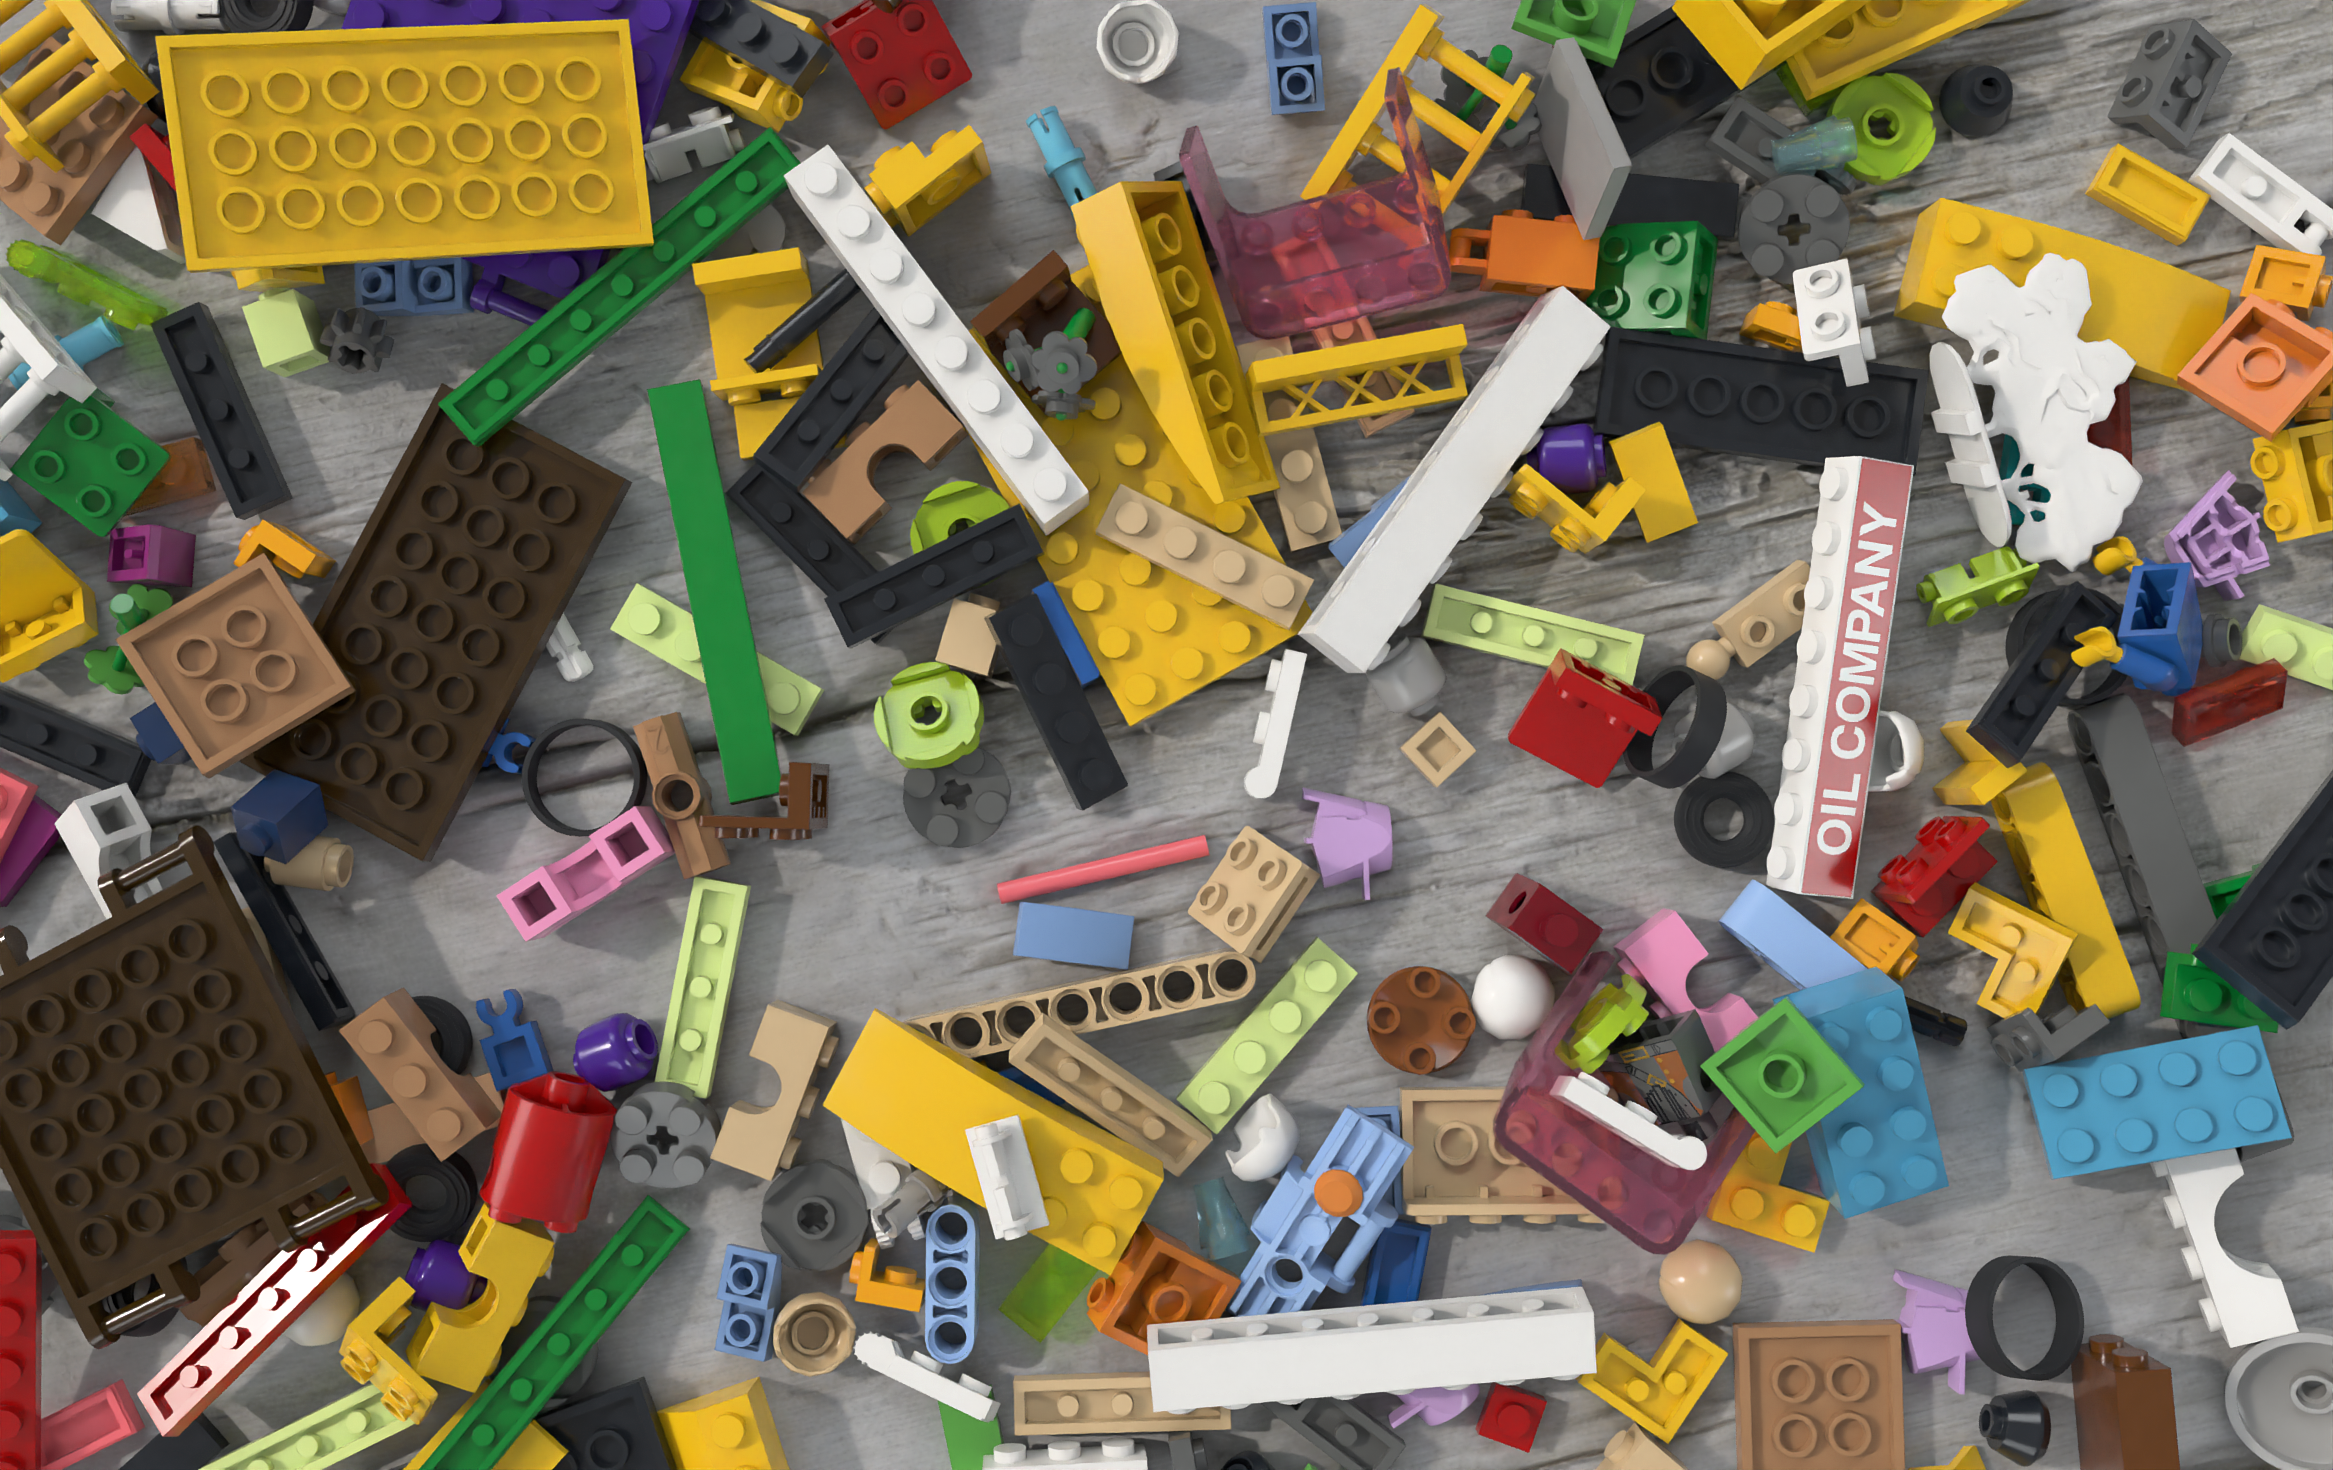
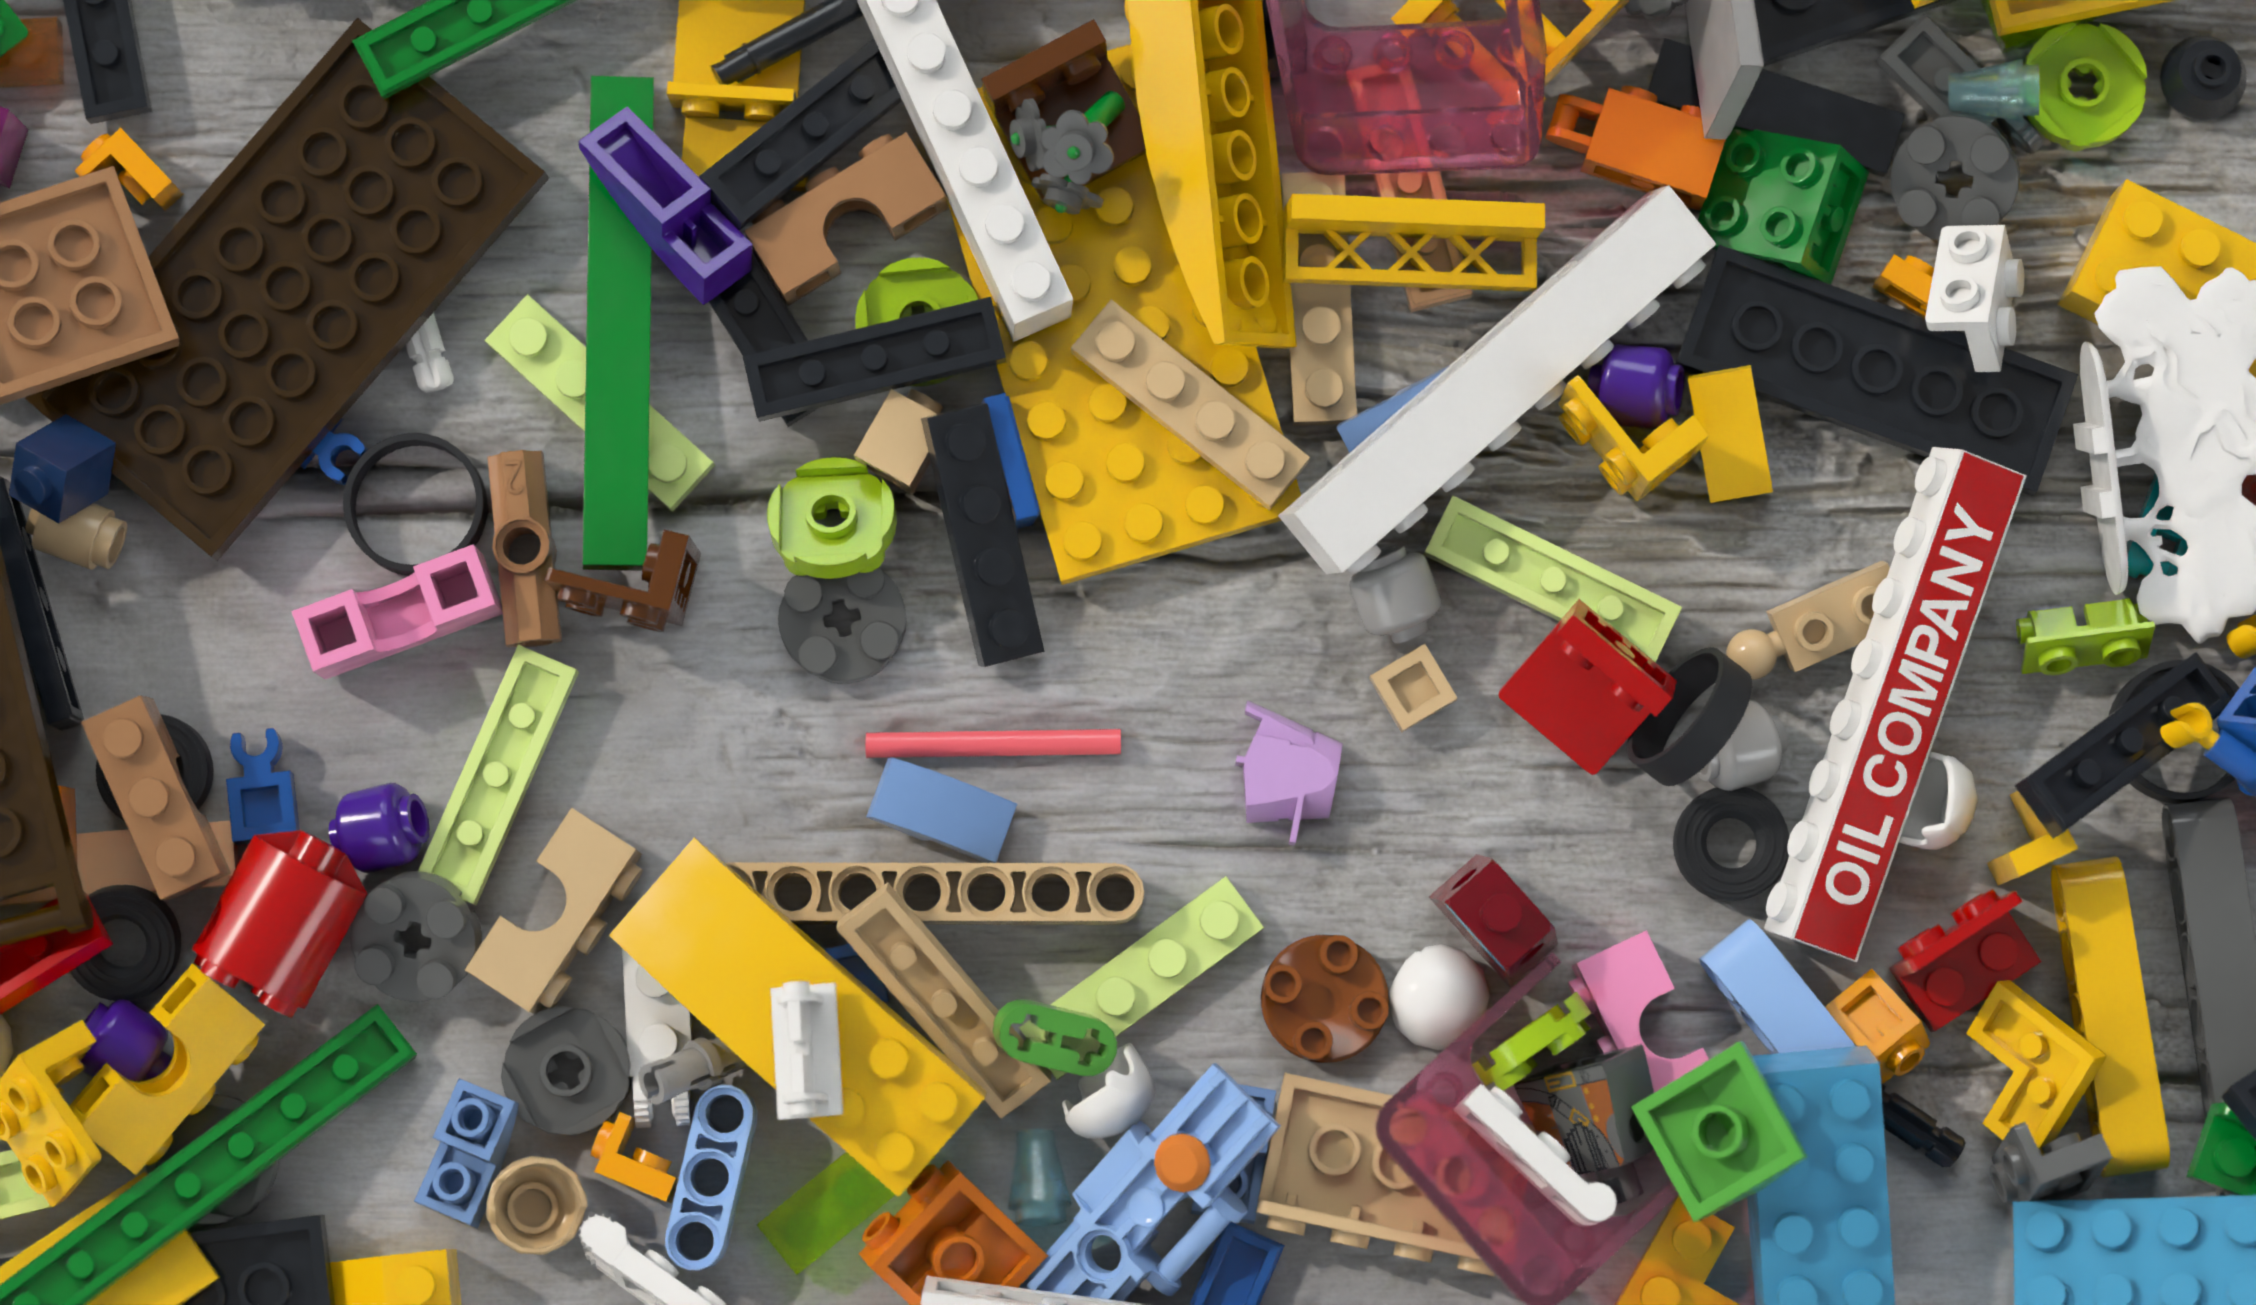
camera: 10 degrees right, 5 degrees down
(733, 484) = (667, 205): none -> dark purple slope
(1208, 1119) = (1051, 1052): none -> bright green beam
(1253, 894) = (1163, 808): tan bracket -> none
(1274, 727) = (1228, 620): white plate -> none

